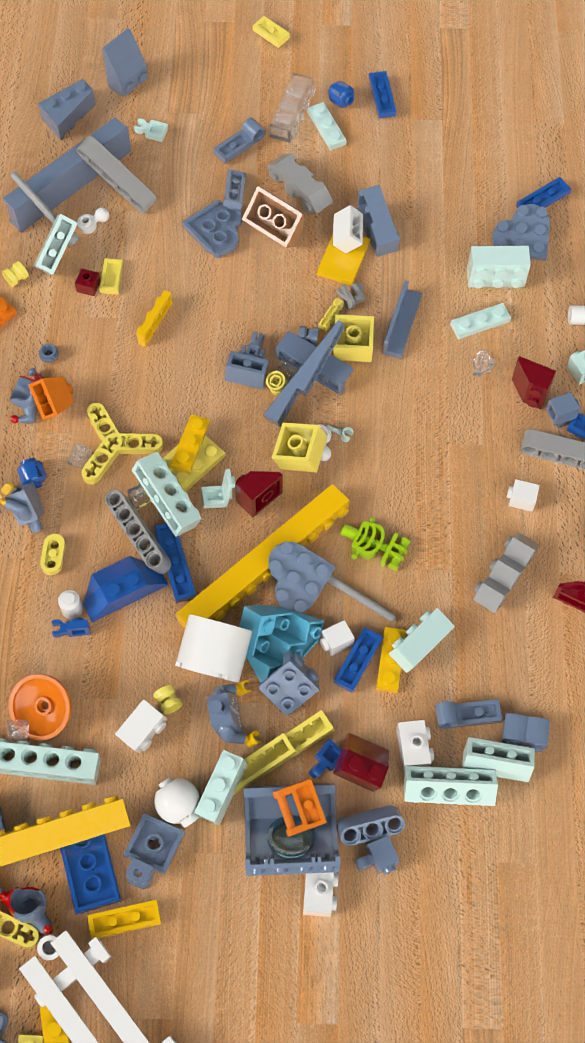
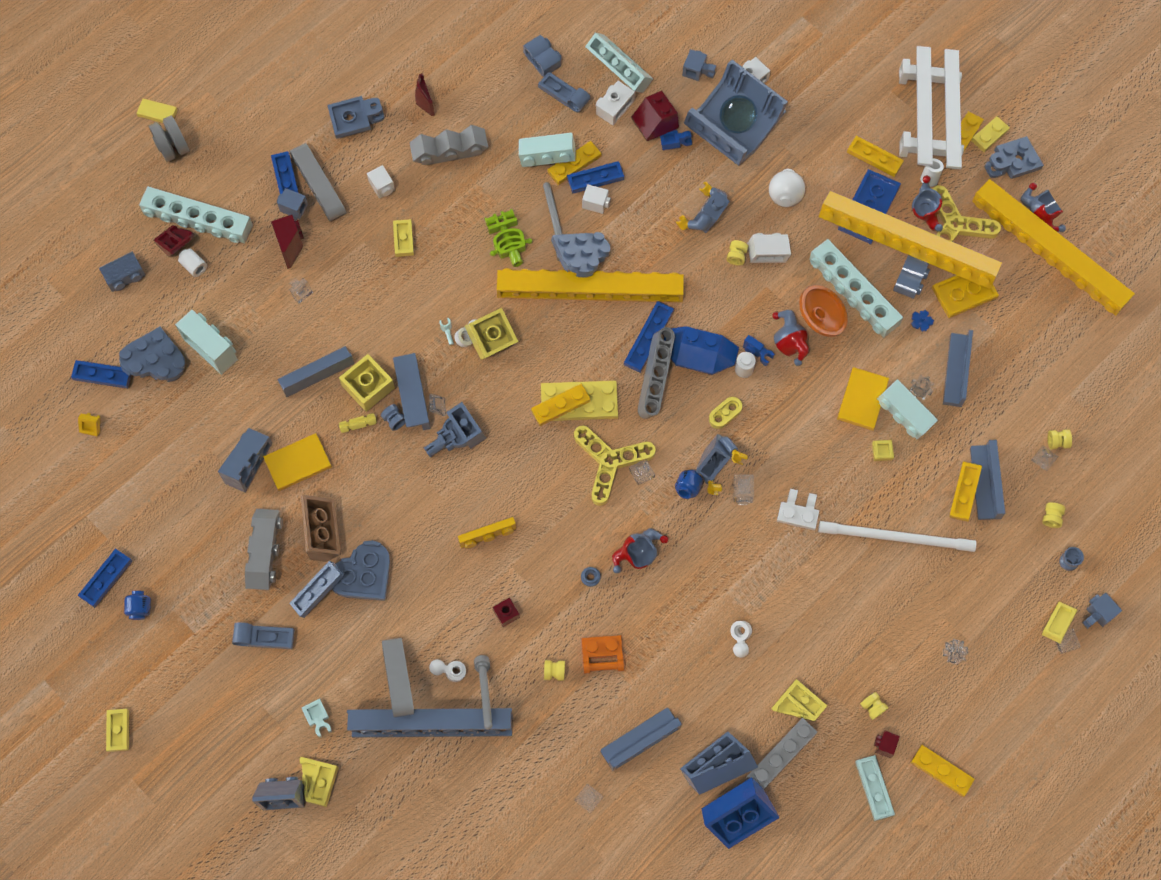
camera: 135 degrees left, 5 degrees up
(17, 731) = (849, 314): clear slope -> none
(51, 395) = (623, 524): orange torso -> none
(51, 660) = (791, 337): none -> piece
(55, 244) = (504, 656): light aqua brick -> none
(66, 107) = (364, 804): sand blue wedge -> none
(111, 276) = (481, 605): light yellow tile -> none
(113, 100) = (318, 780): none -> light yellow wing
(138, 496) = (628, 401): clear tile -> none
(146, 860) = (835, 174): sand blue plate -> none
(166, 504) = (614, 376): light aqua brick -> none
(213, 648) = (684, 242): white brick -> none
(218, 495) = (574, 353): light aqua bracket -> none
(221, 787) = (753, 171): light aqua brick -> none
(258, 490) = (549, 327): dark red slope -> none
(275, 633) = (634, 229): medium azure brick -> none
(279, 384) = (451, 398): light yellow wheel -> none
(285, 748) = (702, 169): light yellow slope -> none
(290, 683) = (648, 187): sand blue bracket -> none
(291, 108) = (187, 631): clear brick -> none
(304, 378) = (435, 377): sand blue slope -> none
(307, 805) = (716, 112): orange plate -> none
(326, 126) = (179, 592): light aqua plate -> none
(347, 297) = (332, 420): light grey piece -> none
(348, 229) = (276, 467): white brick -> none
(381, 828) = (686, 83): sand blue beam -> none
(454, 469) = (403, 238): none -> light yellow plate
(480, 321) = (261, 324): light aqua plate -> none
(508, 760) = (576, 52): light aqua brick -> none
(510, 162) = (89, 424): none -> yellow tile

